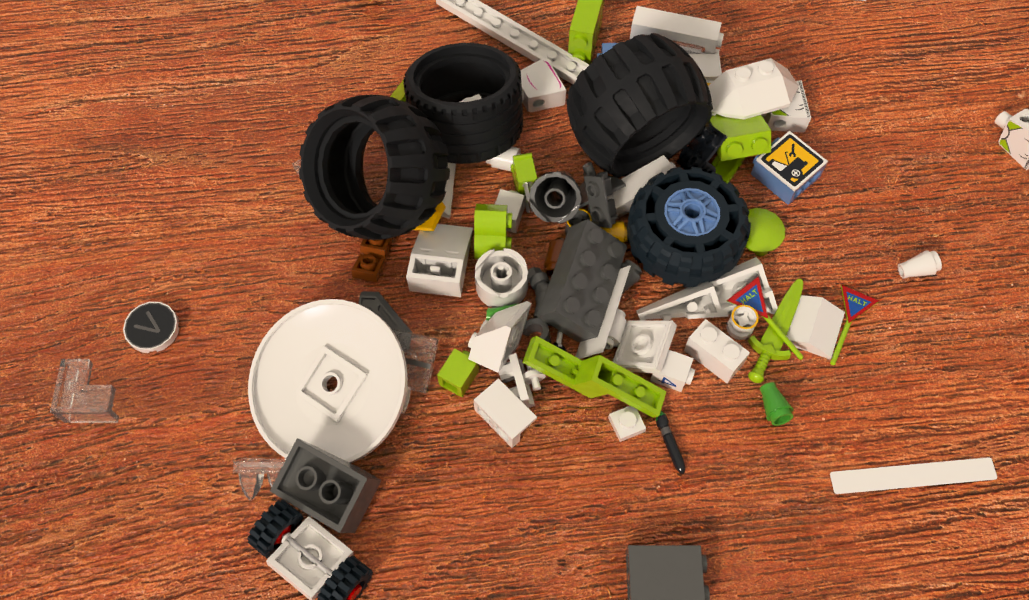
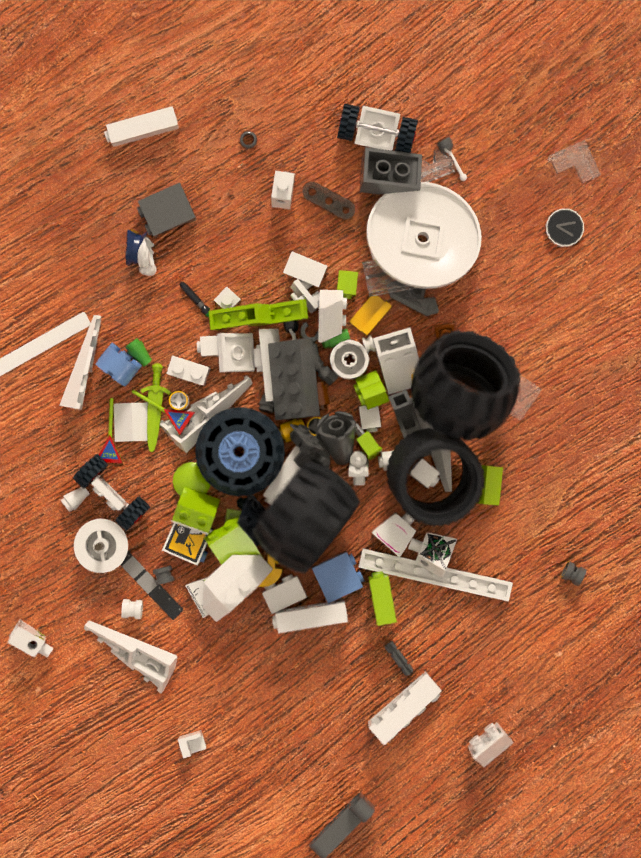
camera: 160 degrees right, 25 degrees up
(233, 495) = (446, 146): none -> hinge
(425, 480) = (322, 194): none -> clear smoke plate
(448, 322) = (370, 314): none -> yellow panel
(464, 189) = (405, 414): none -> dark grey arch
(468, 291) = (368, 344): none -> white bush
(482, 535) = (282, 189): none -> white torso
(506, 39) = (433, 552): none -> torso
(549, 154) = (358, 467): none -> white hips
(727, 532) = (140, 252): none -> piece
(770, 184) = (196, 510): none -> lime piece
(813, 392) = (118, 364): none -> medium blue brick
(832, 144) = (163, 575): none -> dark grey wheel
(860, 163) = (148, 583): none -> sticker
(873, 246) = (90, 473): none -> black plate
(881, 73) = (148, 660): none -> white wedge
(881, 388) = (76, 387): none -> white wedge
(883, 124) = (132, 609): none -> white wheel
(903, 195) = (100, 545): none -> white piece

